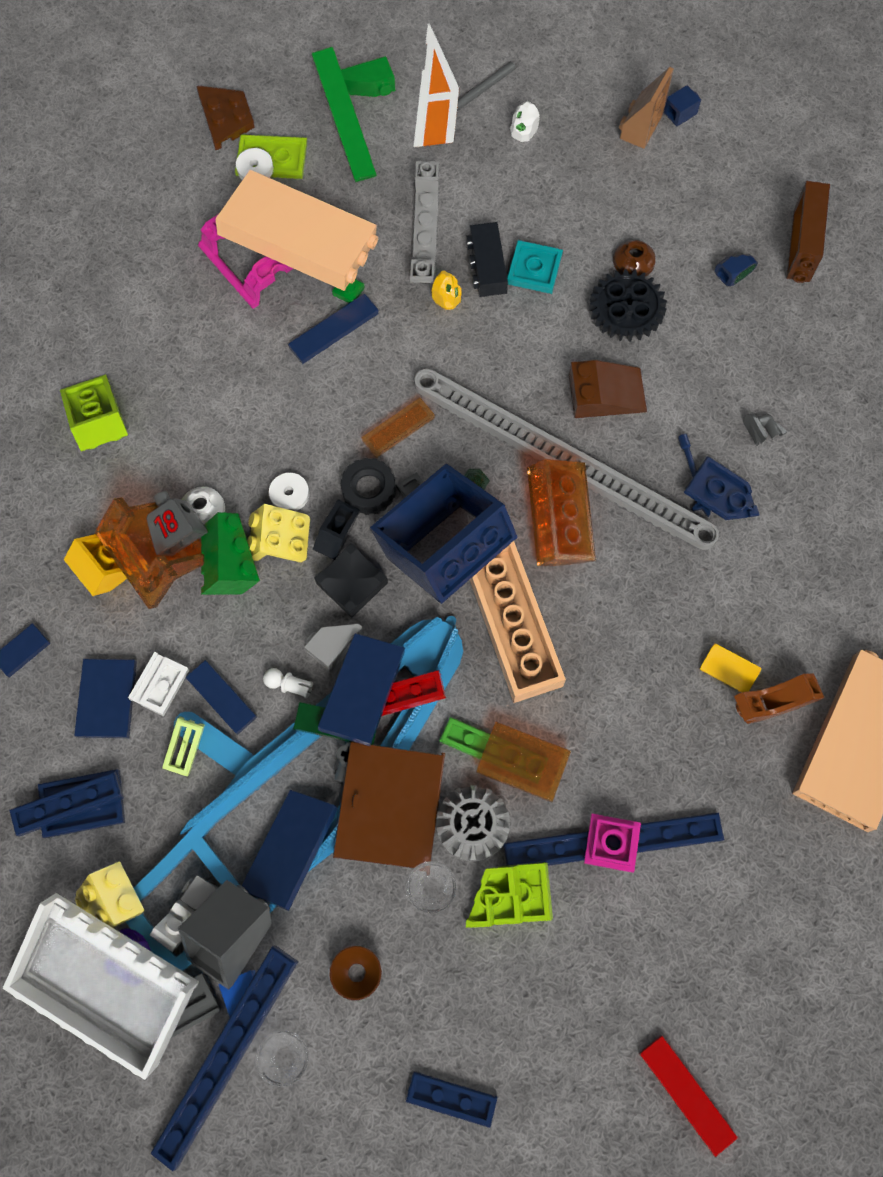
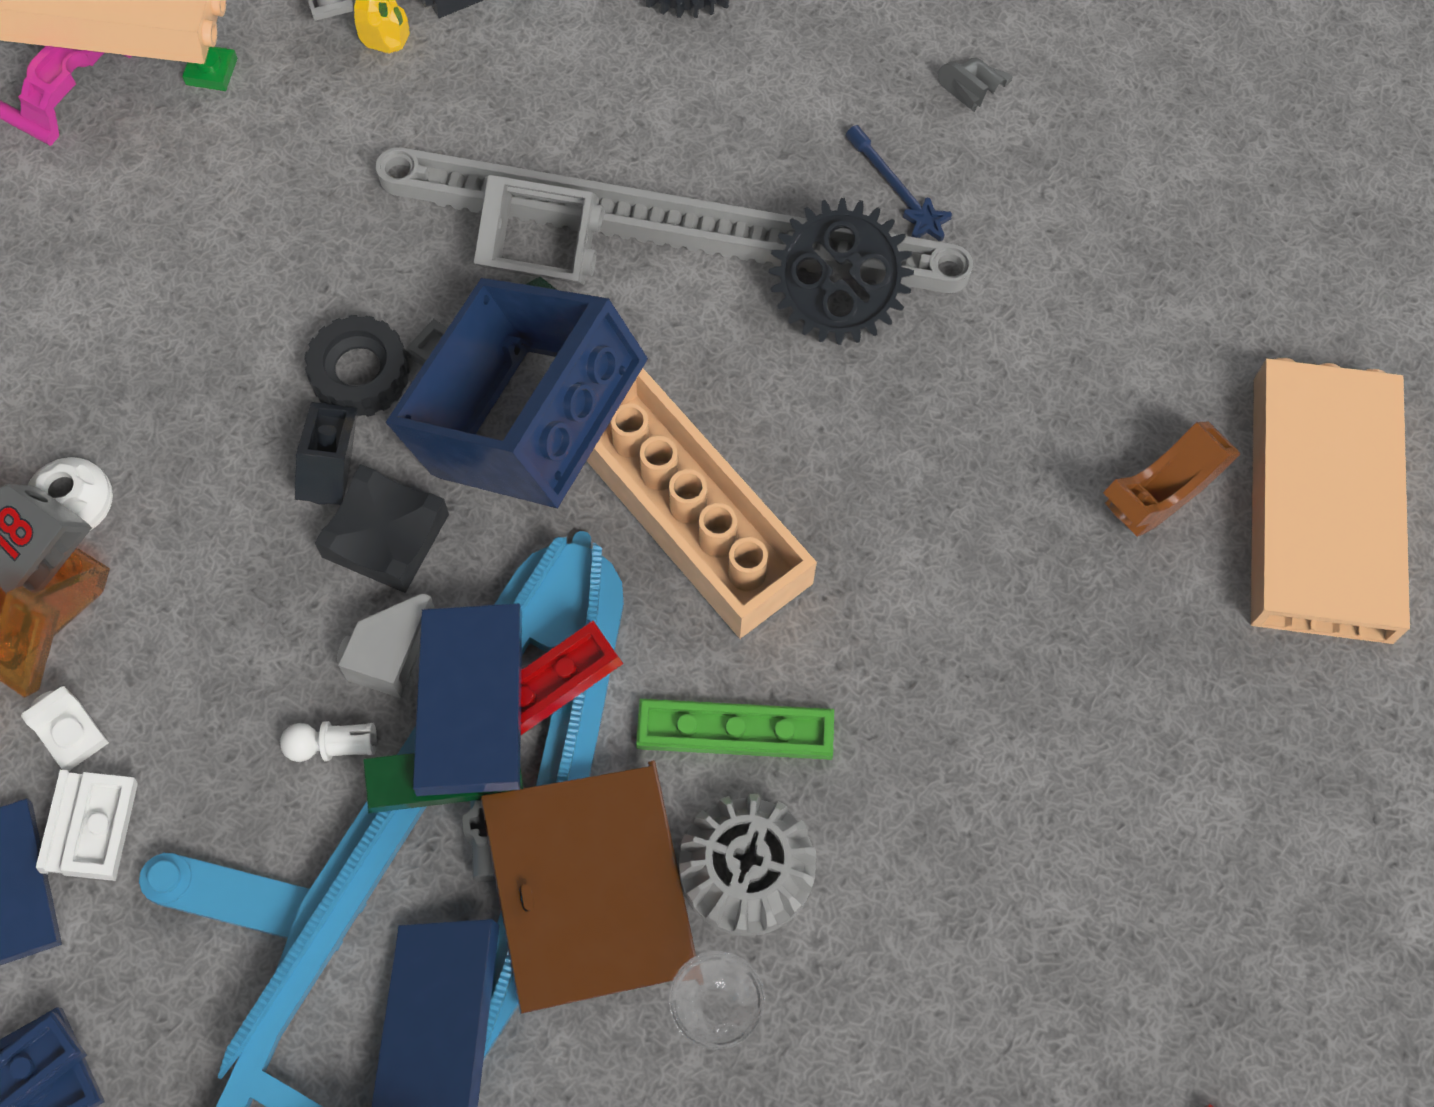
camera: 25 degrees left, 5 degrees down
(163, 630) = (64, 727): none -> white bracket
(191, 725) = (171, 874): yellowish green tile -> none
(221, 697) = (214, 809): dark blue tile -> none
(227, 557) = (142, 560): green wedge -> none
(278, 533) = (222, 493): light yellow bracket -> none
(286, 482) = (214, 403): white piece -> none
(333, 328) = (205, 136): dark blue tile -> none
(398, 427) = (375, 258): clear orange tile -> none
(465, 432) = (495, 221): none -> light grey window
(512, 896) = (863, 963): lime slope -> none
(523, 762) = (795, 728): clear orange tile -> none
(561, 513) = (703, 303): clear orange slope -> none
(600, 855) = (982, 832): dark pink piece -> none
(605, 389) = (699, 95): reddish brown slope -> none
(652, 837) = (992, 811): dark blue tile -> none
(663, 510) = (870, 243): none -> black gear
(722, 491) = (949, 193): dark blue tile -> none
(730, 668) = (1072, 459): yellow slope -> none

